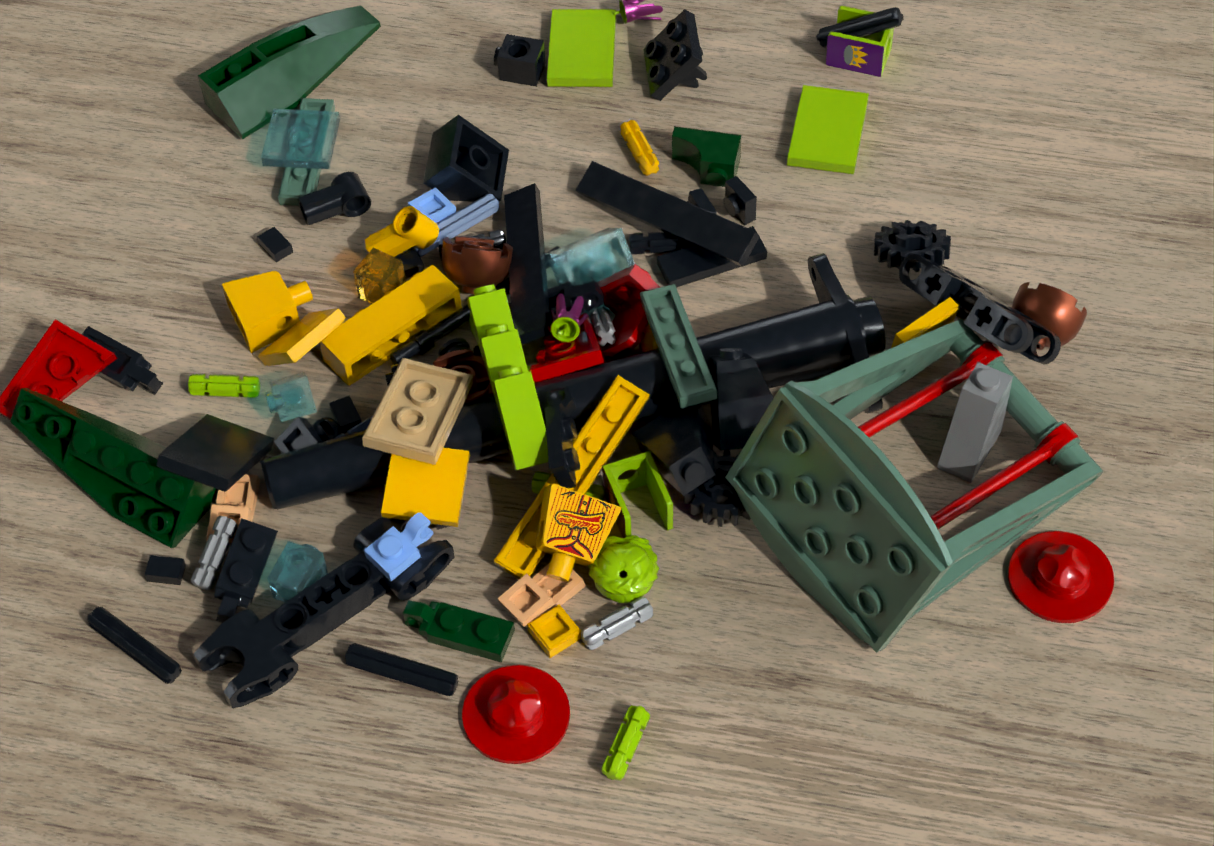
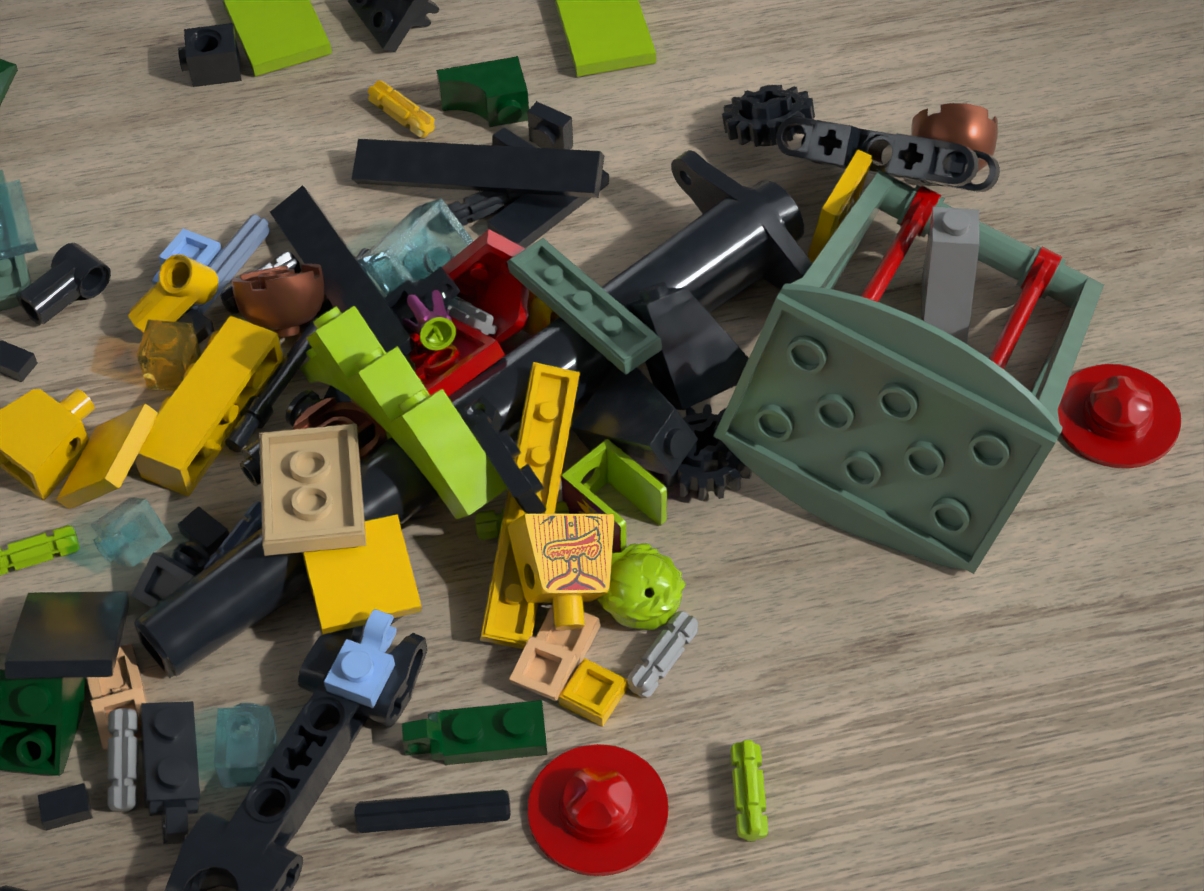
camera: 25 degrees left, 0 degrees up
(465, 162) = (204, 188): black slope -> none

